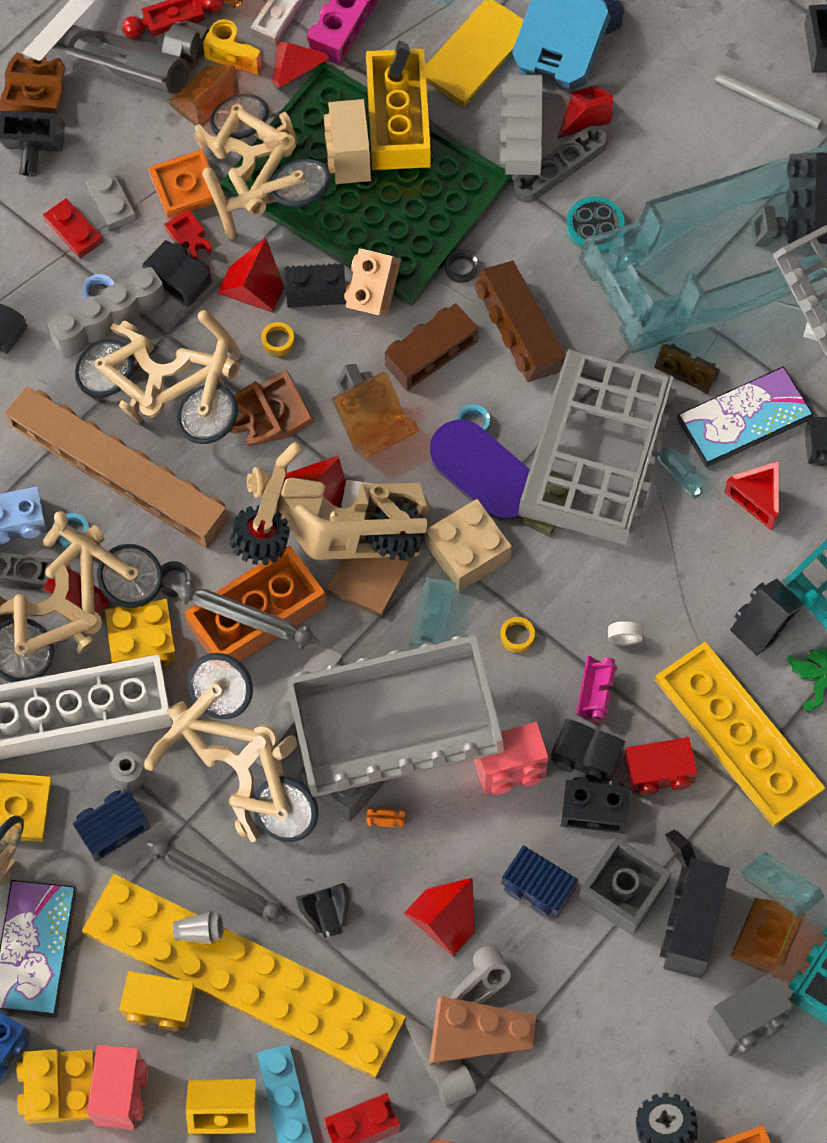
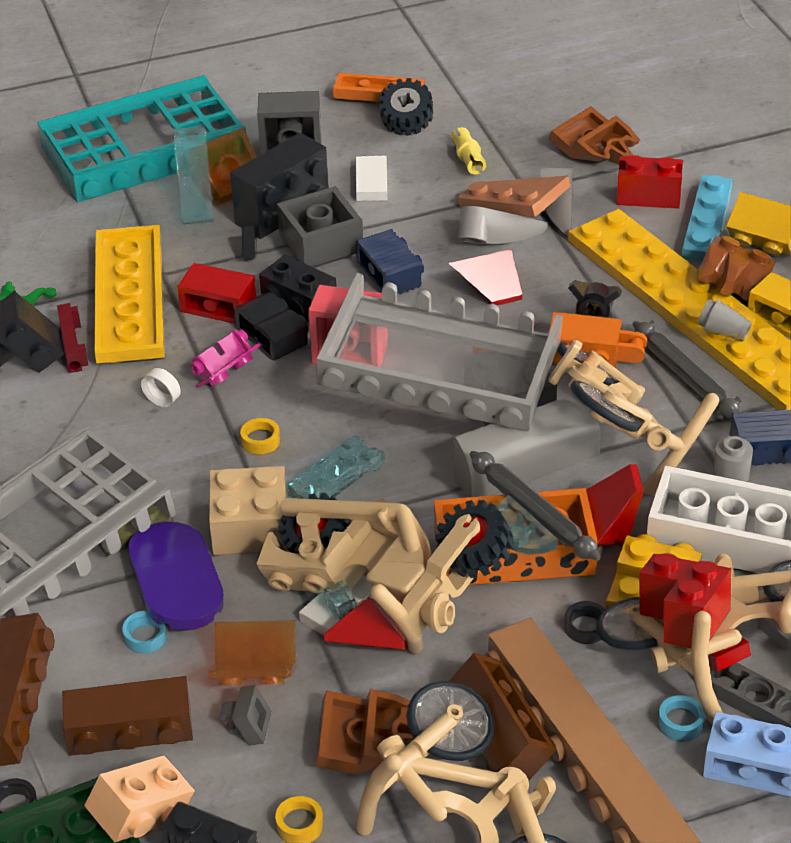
camera: 150 degrees left, 25 degrees down
(87, 576) = (680, 589): none -> red brick
(187, 650) = (615, 505): none -> red slope
(198, 463) = (518, 735): none -> reddish brown brick
(224, 1026) = (734, 267): none -> dark orange plate
(241, 581) = (528, 533): none -> clear light blue plate
(307, 865) = (603, 337): none -> orange brick
(345, 491) = (340, 599): none -> clear light blue bush
(568, 1097) = (468, 151): none -> light yellow pin
(639, 1013) = (371, 178): none -> white tile
(746, 658) = (75, 352): none -> dark red piece

